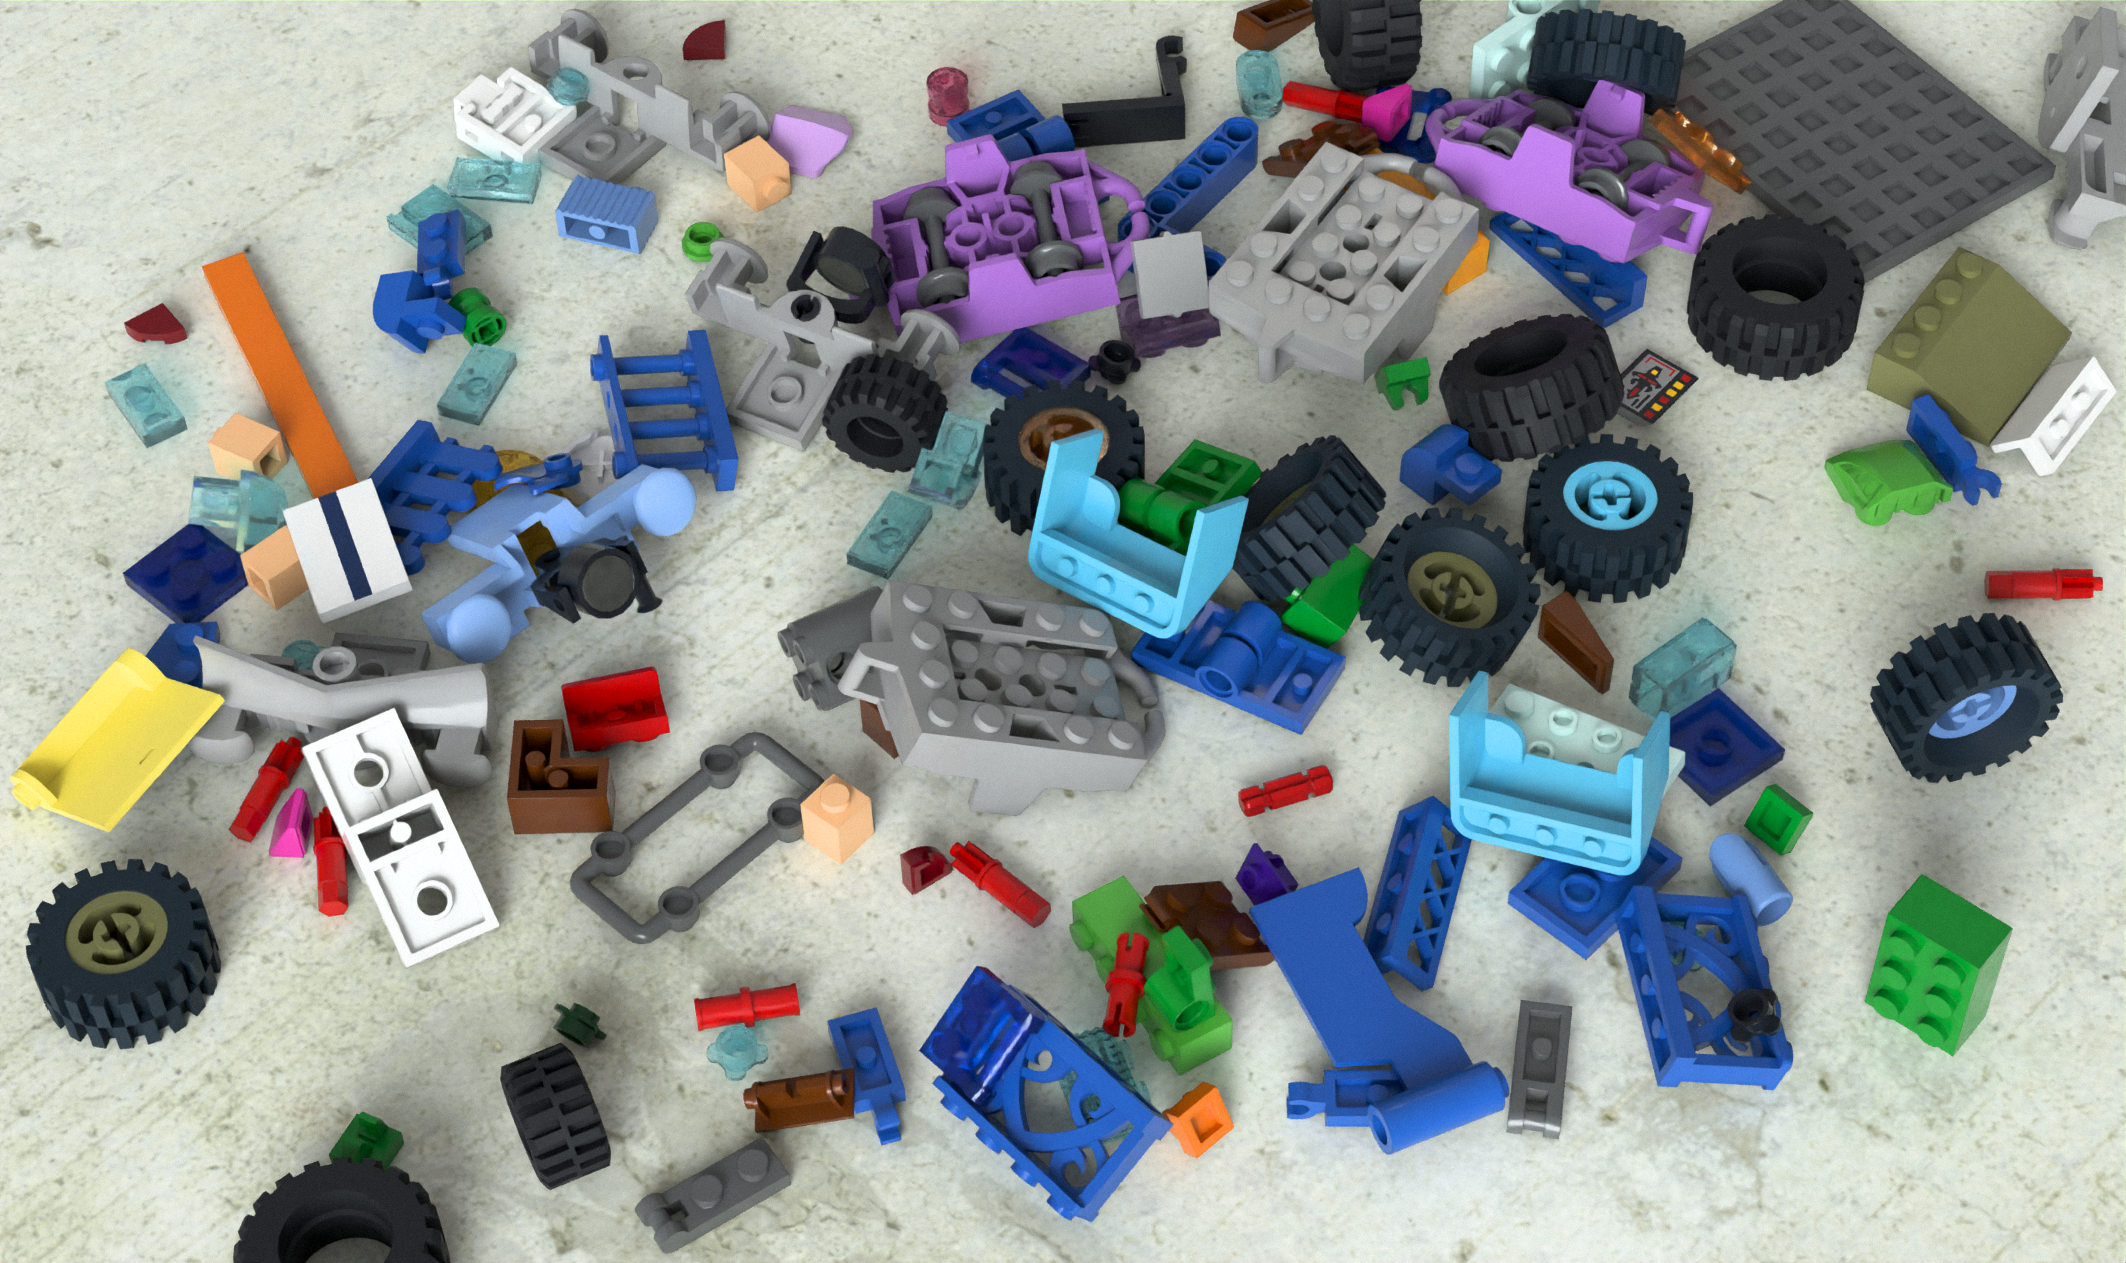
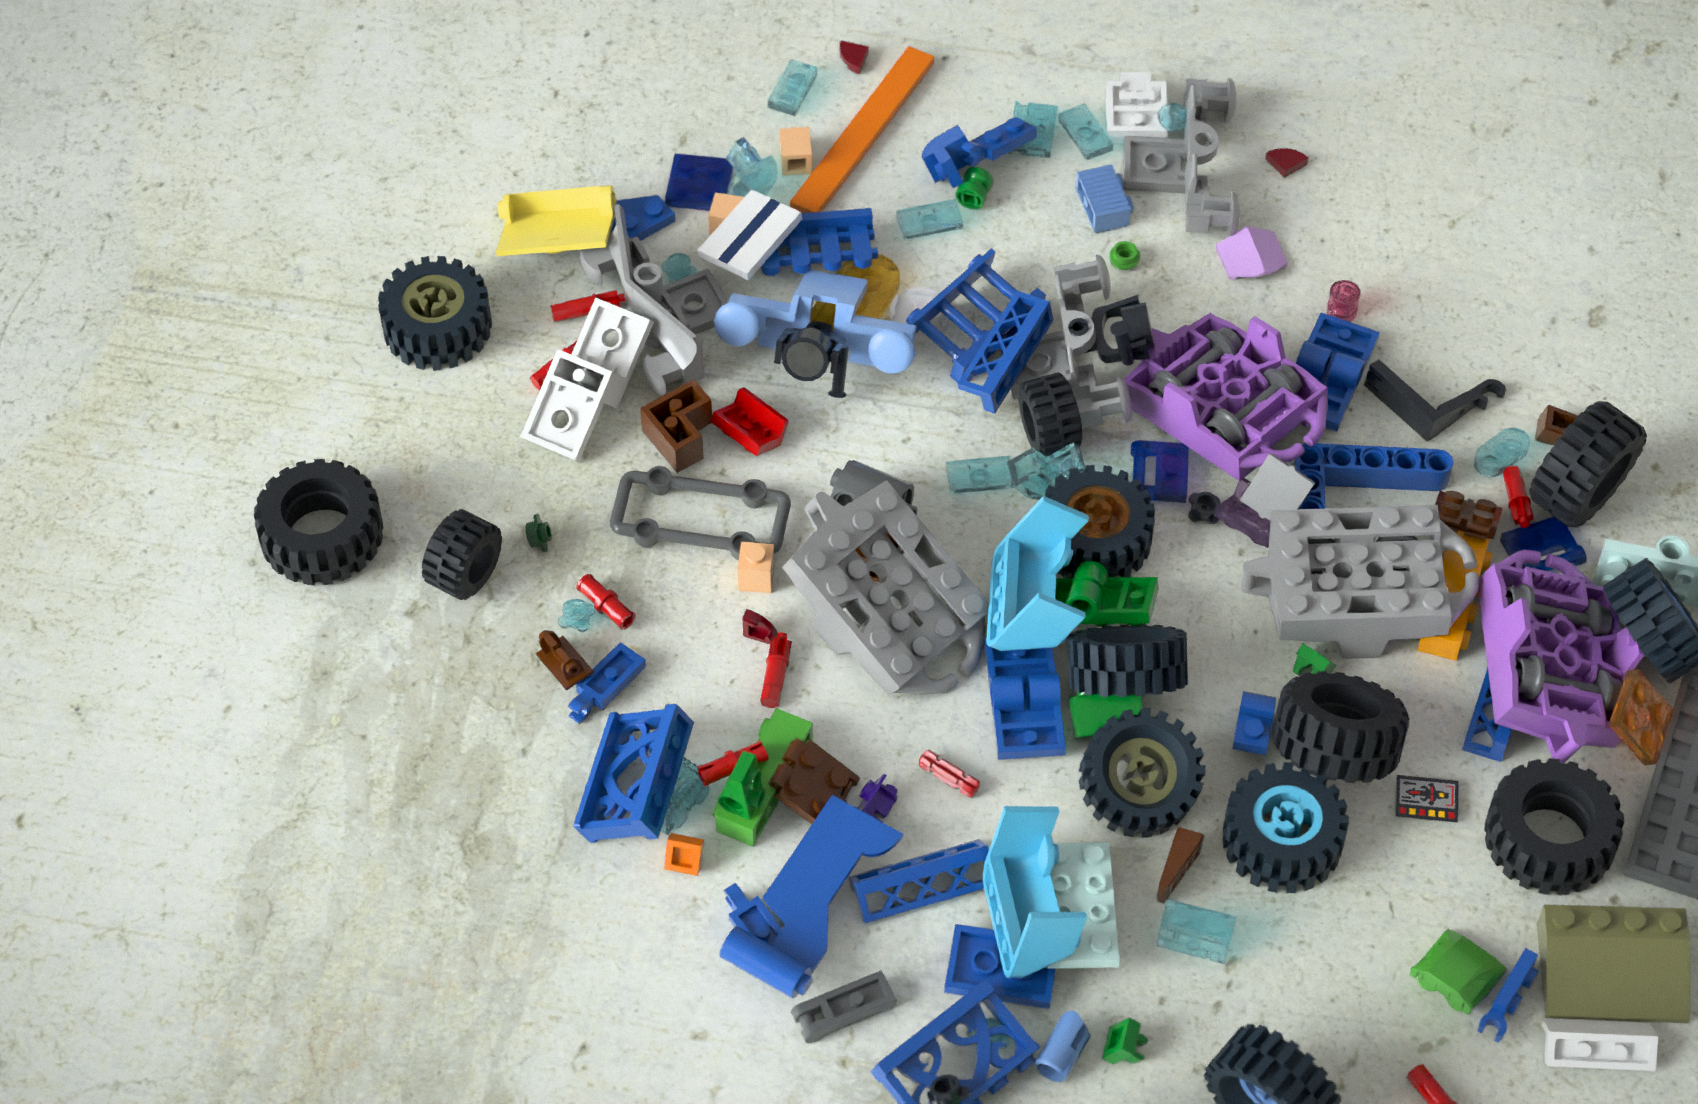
camera: 55 degrees right, 5 degrees up
(292, 827) = (568, 333): dark pink slope -> none
(370, 1139) = (403, 491): green tile -> none
(556, 473) = (877, 287): blue plate -> none
(713, 1195) = (481, 659): dark grey plate -> none
(755, 396) = (1014, 357): none -> blue fence
(757, 173) = (1197, 248): light nougat brick -> none
(971, 1028) = (642, 712): clear blue plate -> none
(1388, 111) = (1524, 530): dark pink slope -> none
(1721, 746) = (1155, 979): clear blue plate -> none

